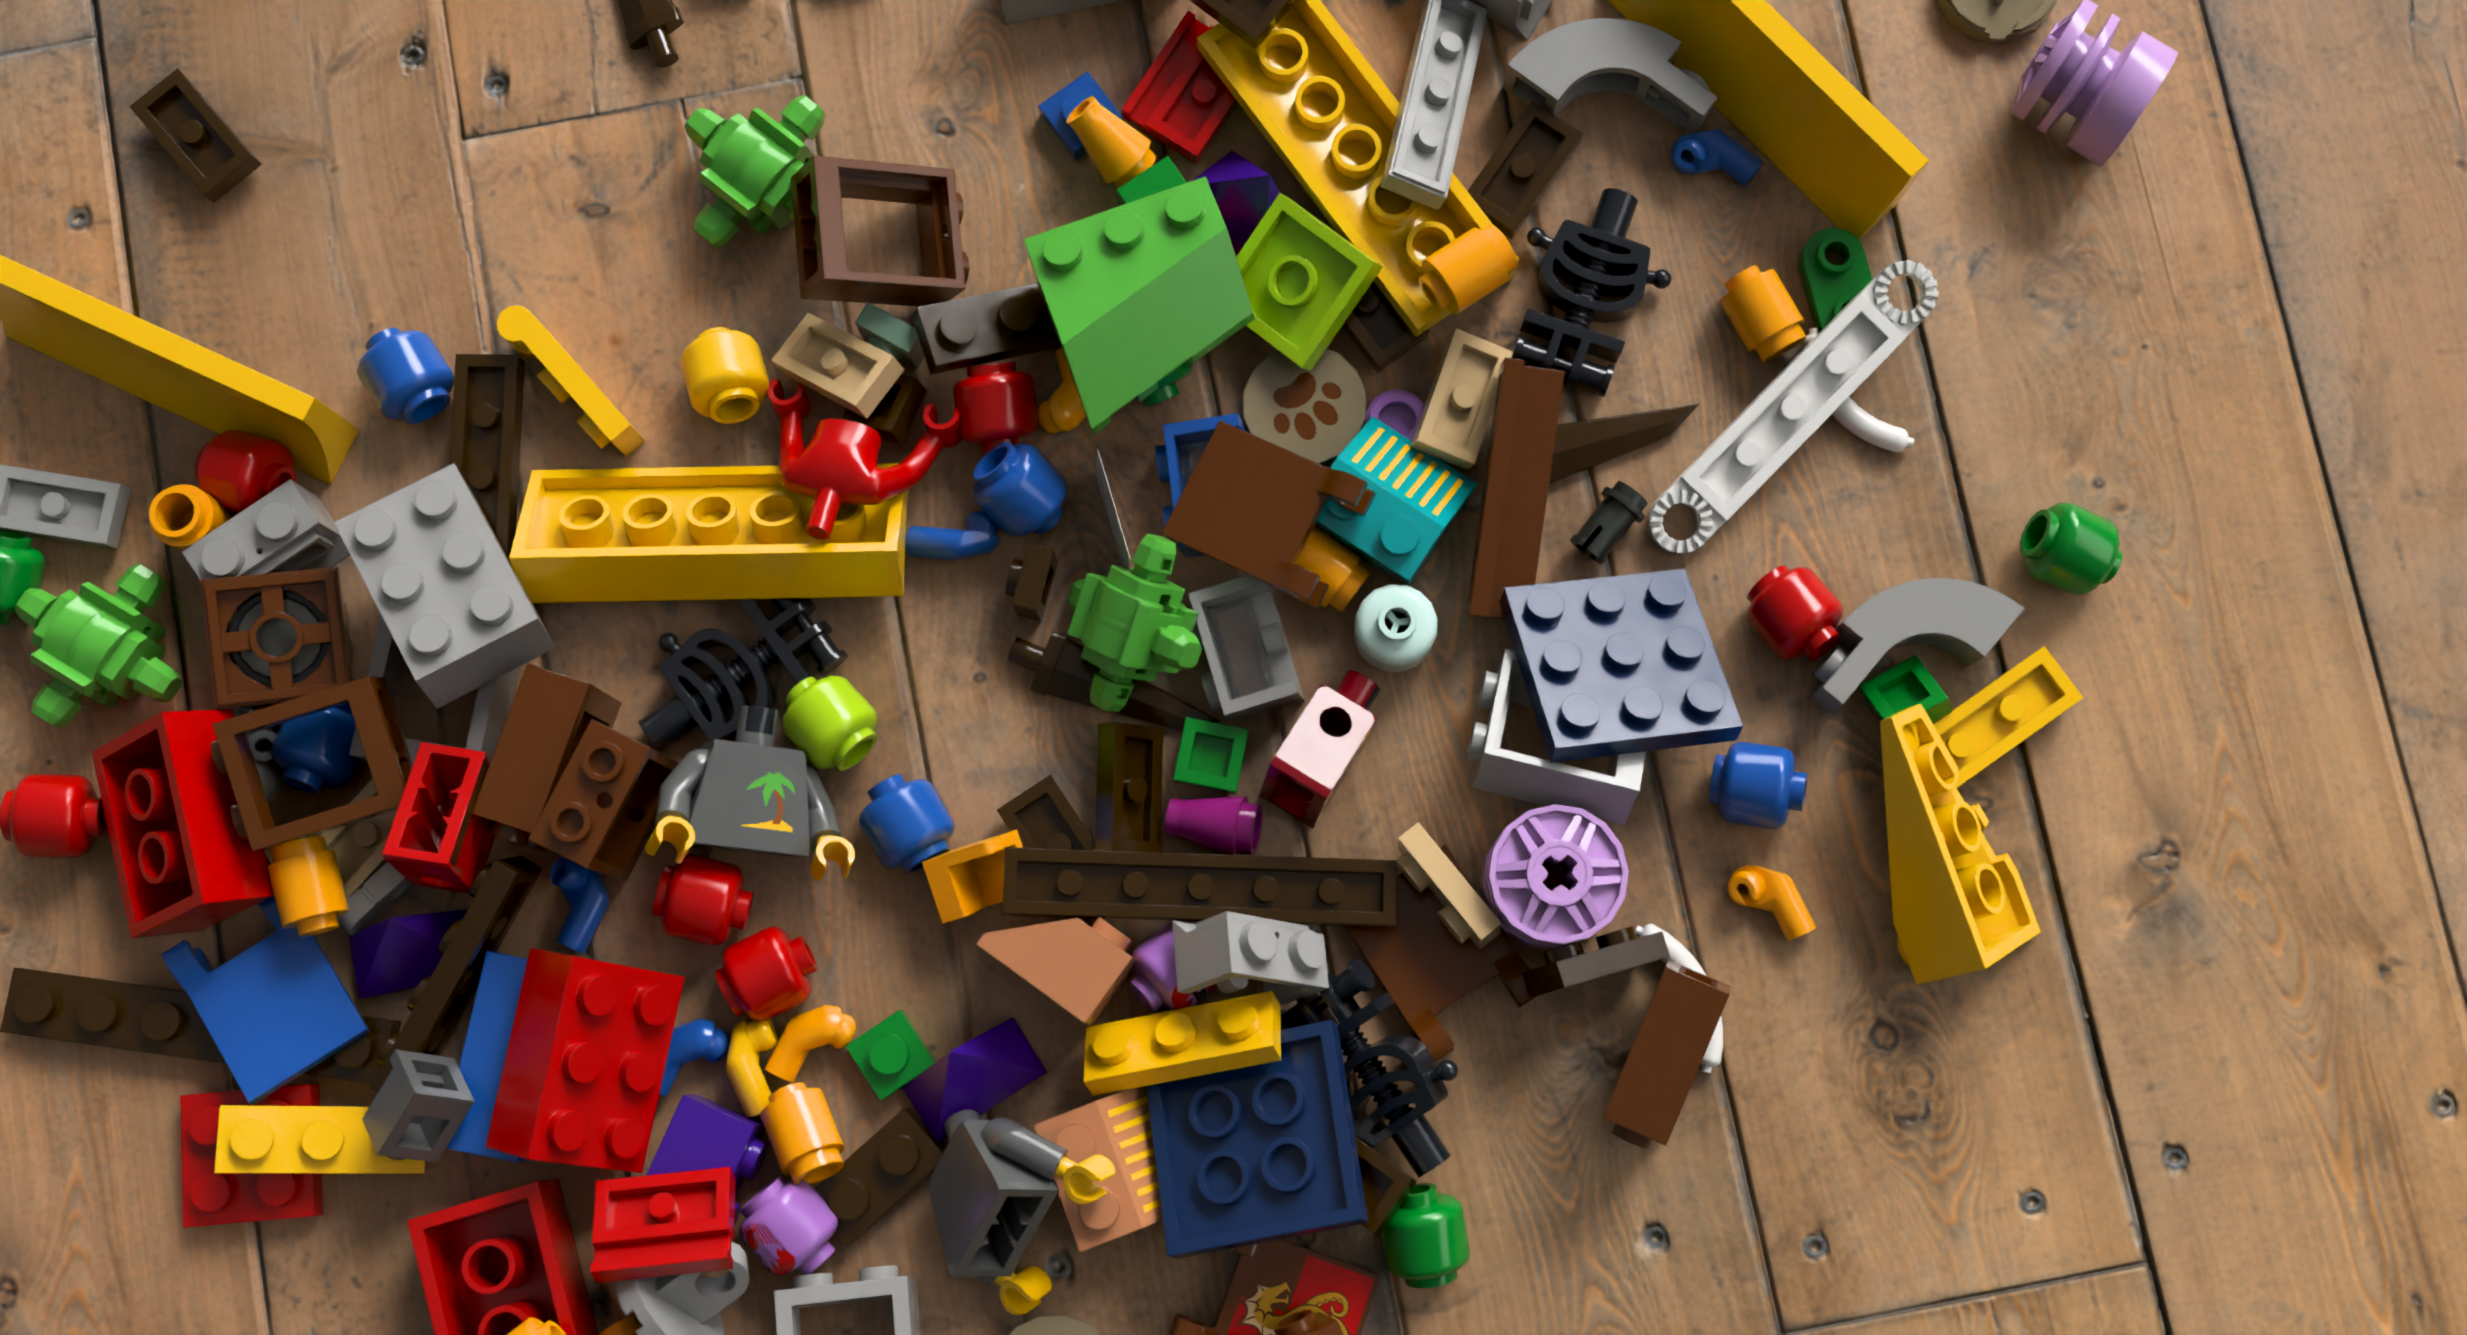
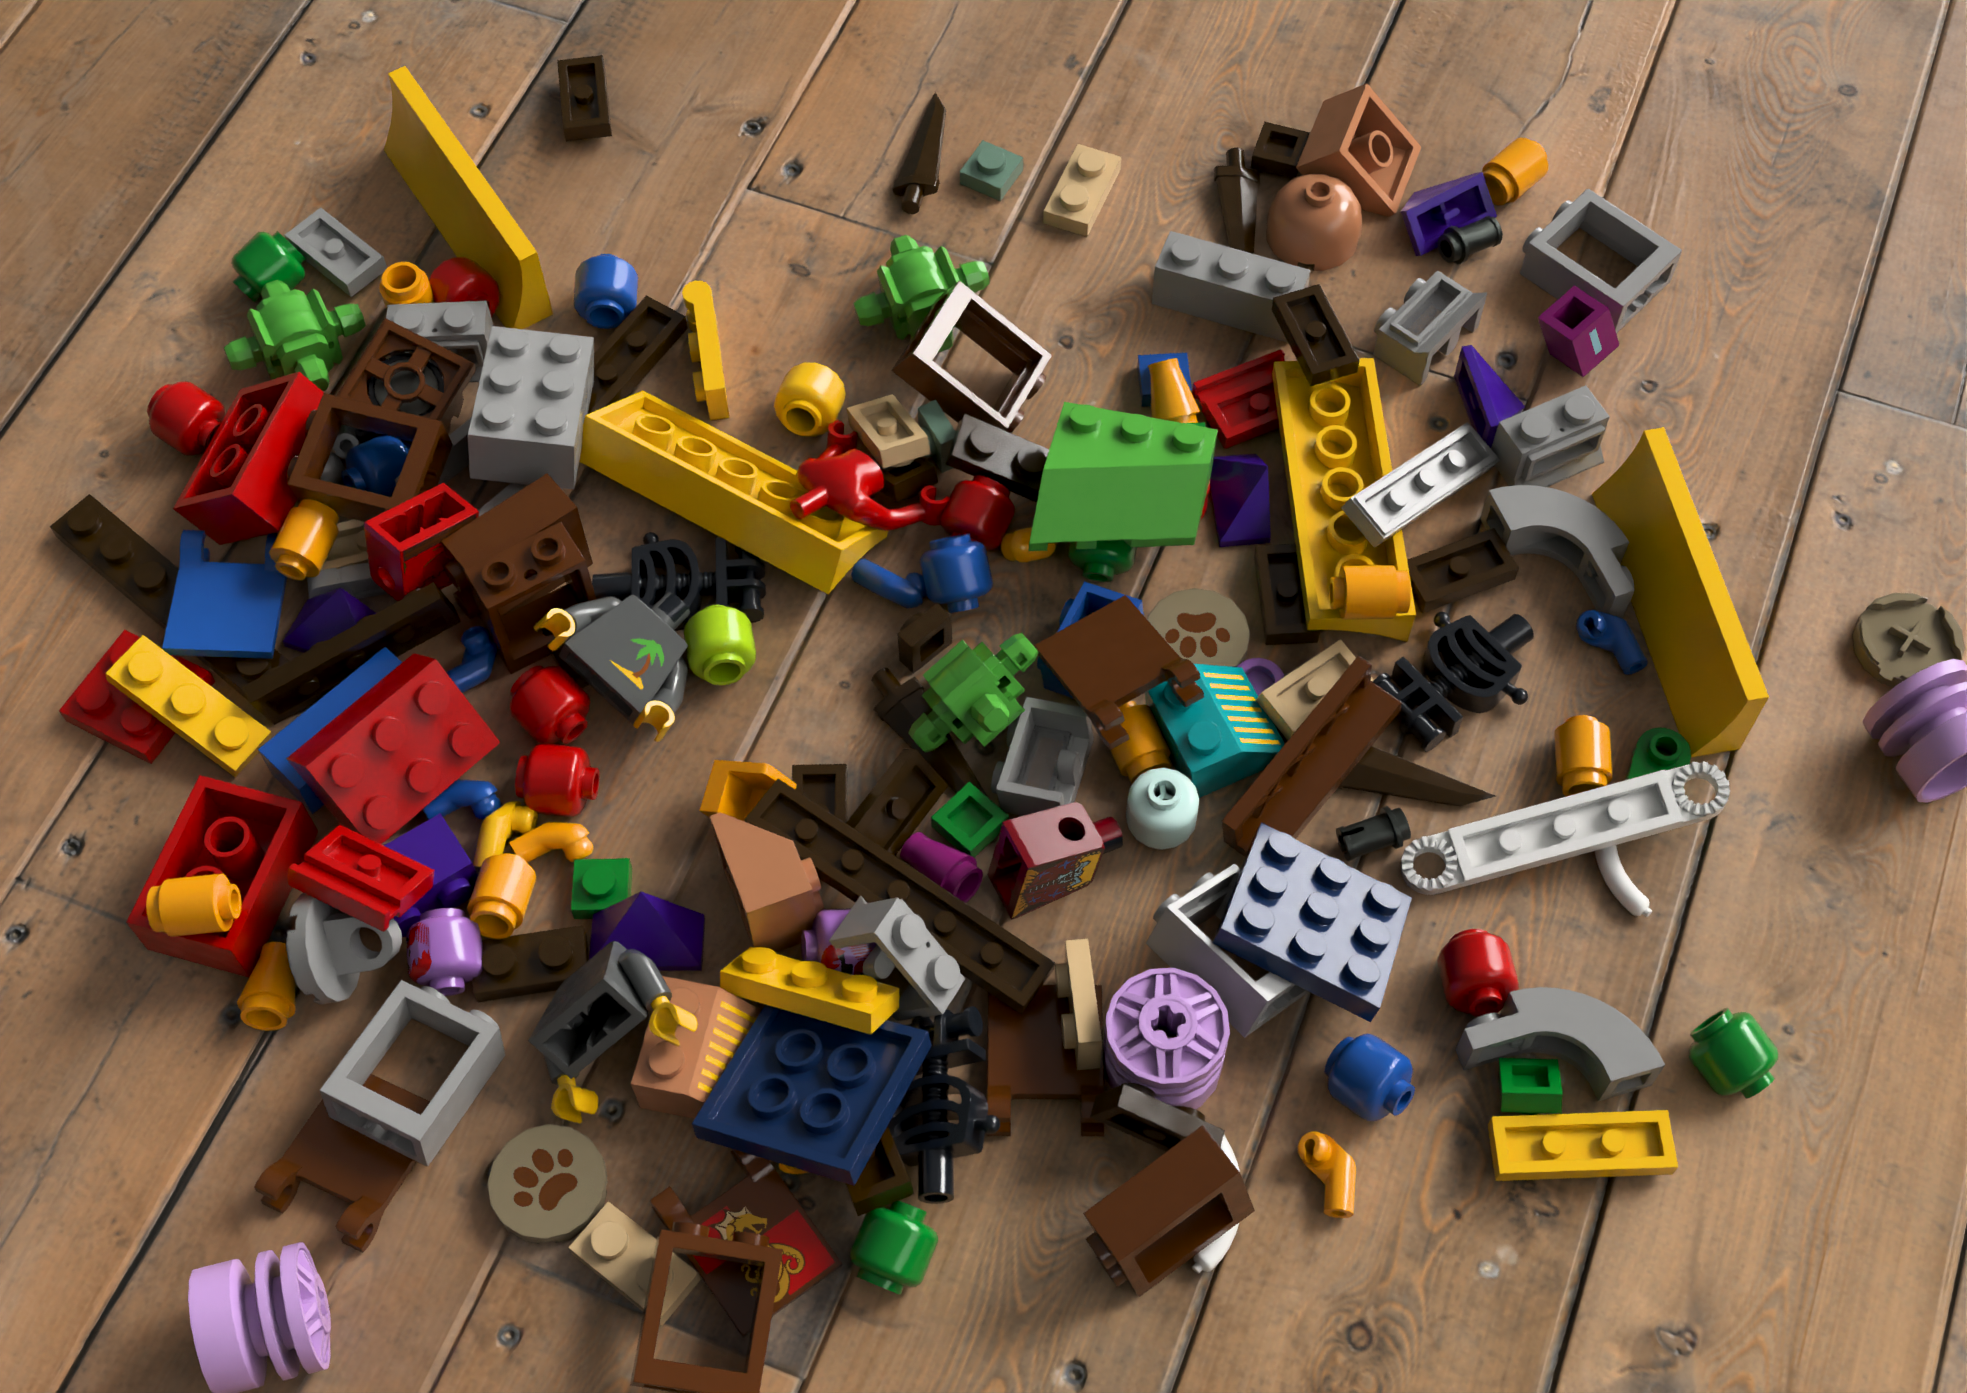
camera: 30 degrees right, 20 degrees down
(418, 1107) = (281, 710): dark grey brick -> none
(906, 823) = (723, 733): blue head -> none
(1111, 513) = (1011, 612): white sticker -> none
(1301, 280) = (1244, 546): lime plate -> none
(1949, 891) = (1478, 1232): yellow wedge -> none

